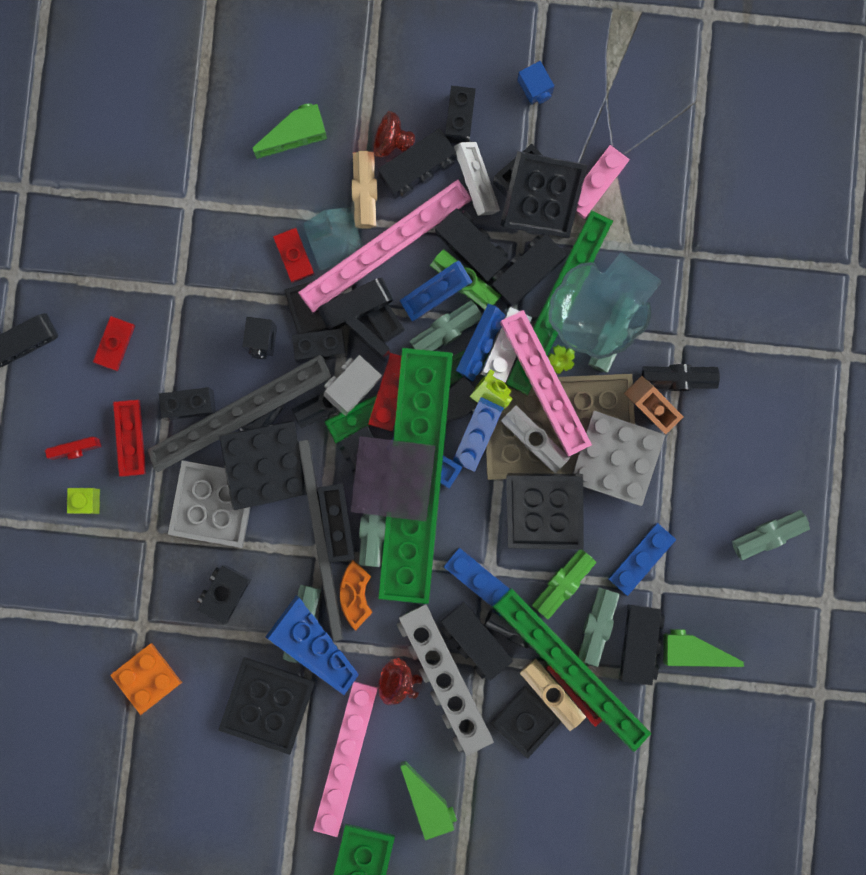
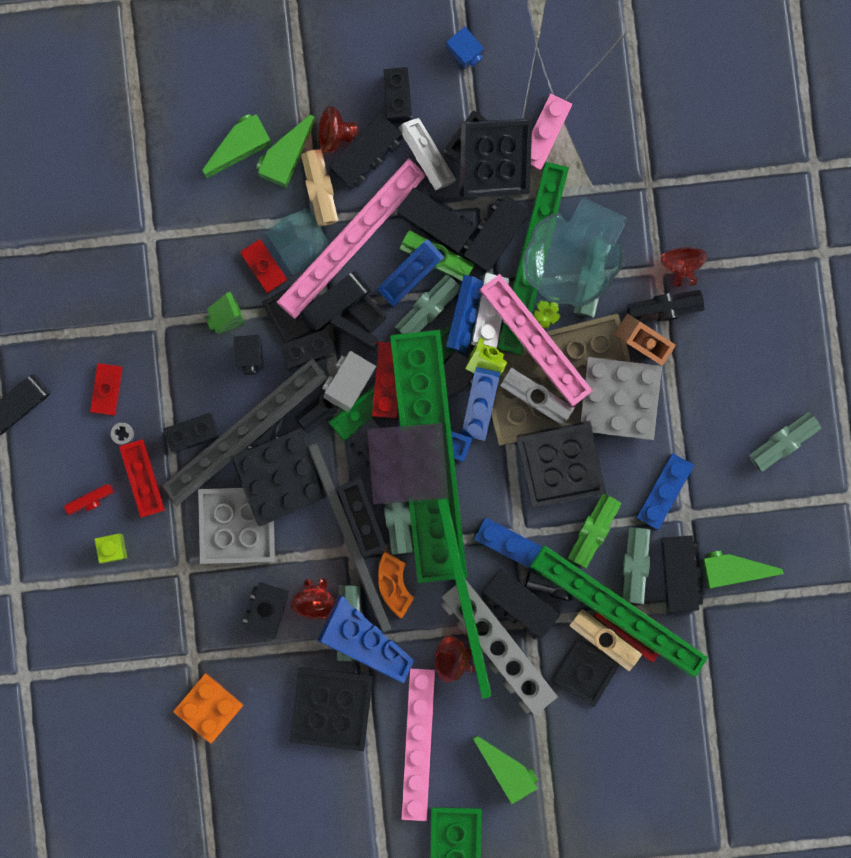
camera: 10 degrees left, 0 degrees up
(113, 394) = (116, 438): none -> light grey bush
(244, 293) = (224, 314): none -> bright green slope
(271, 595) = (313, 601): none -> clear red hair
(337, 150) = (283, 156): none -> bright green slope
(421, 649) = (464, 598): none -> green tile
(707, 338) = (684, 263): none -> clear red hair

